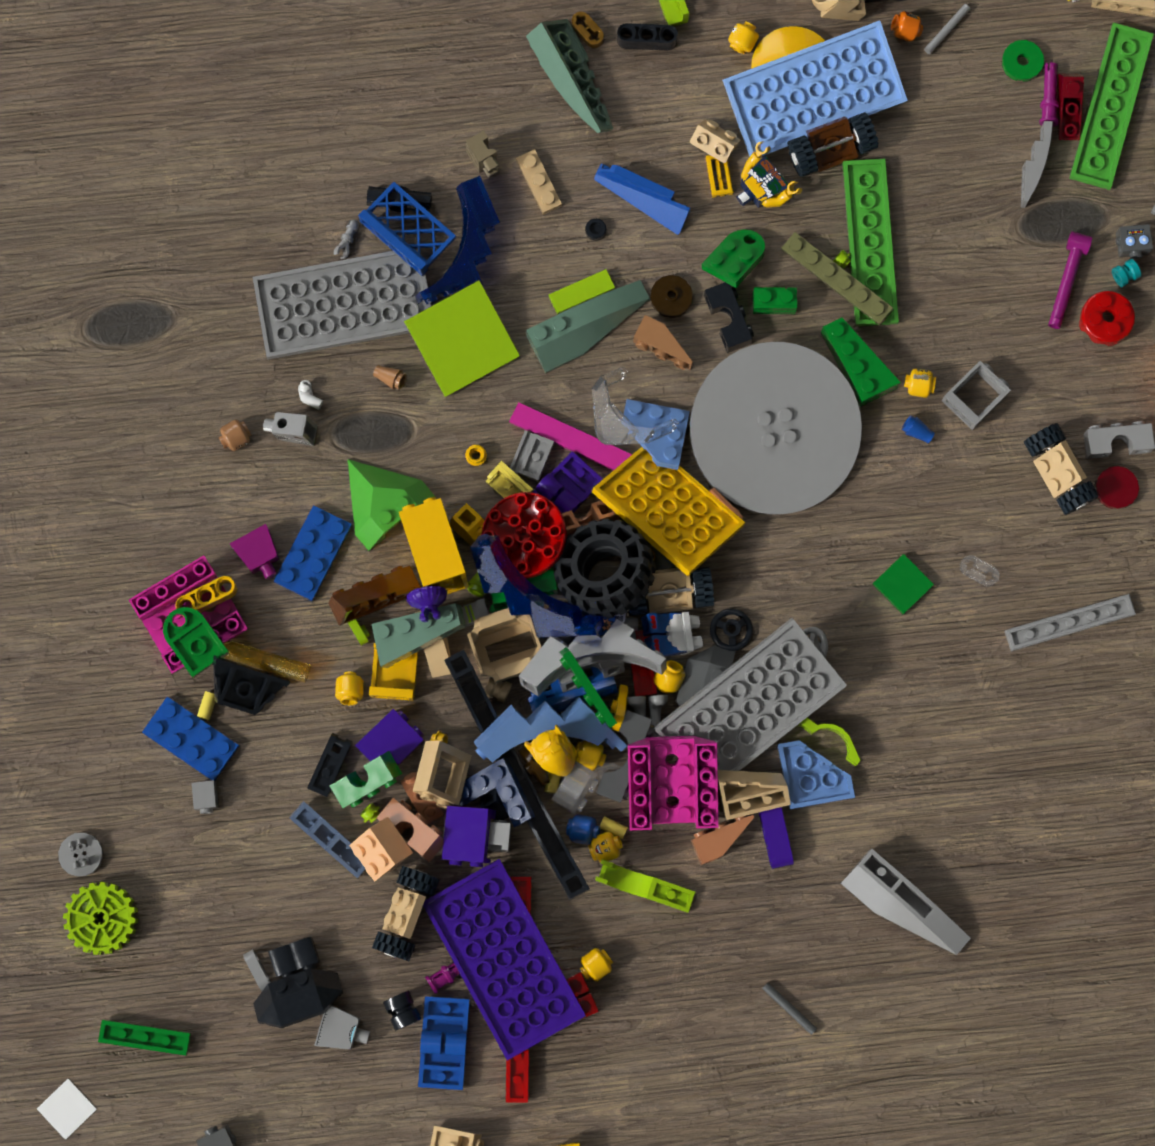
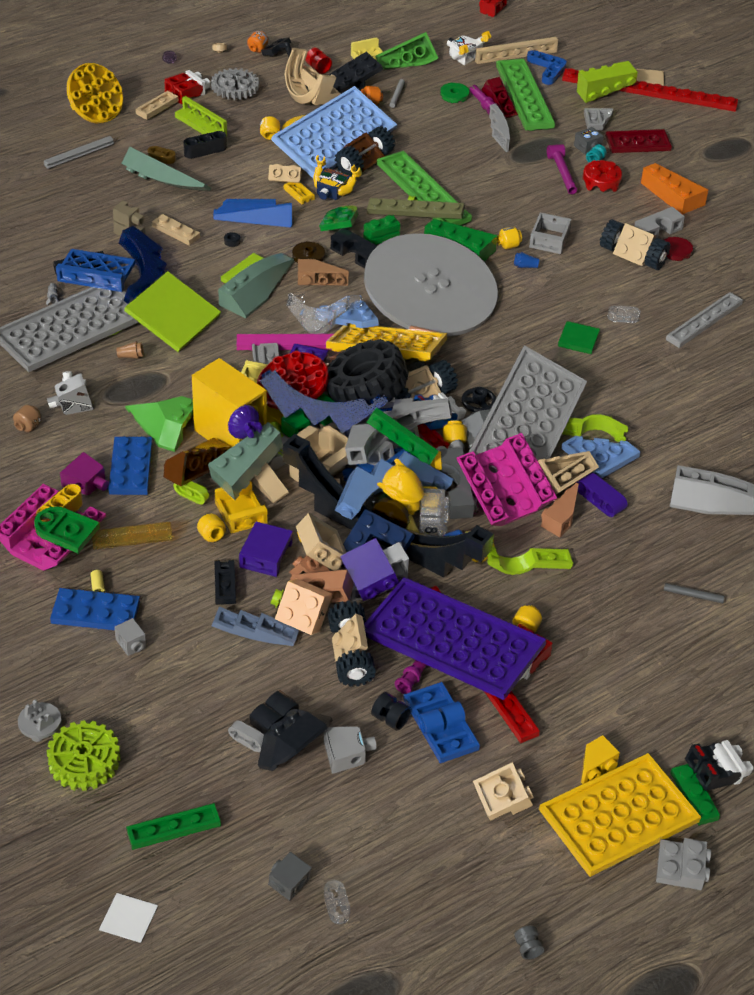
camera: 30 degrees left, 35 degrees down
(244, 686) = (122, 550): black wing -> none
(380, 772) = (256, 584): arch -> none

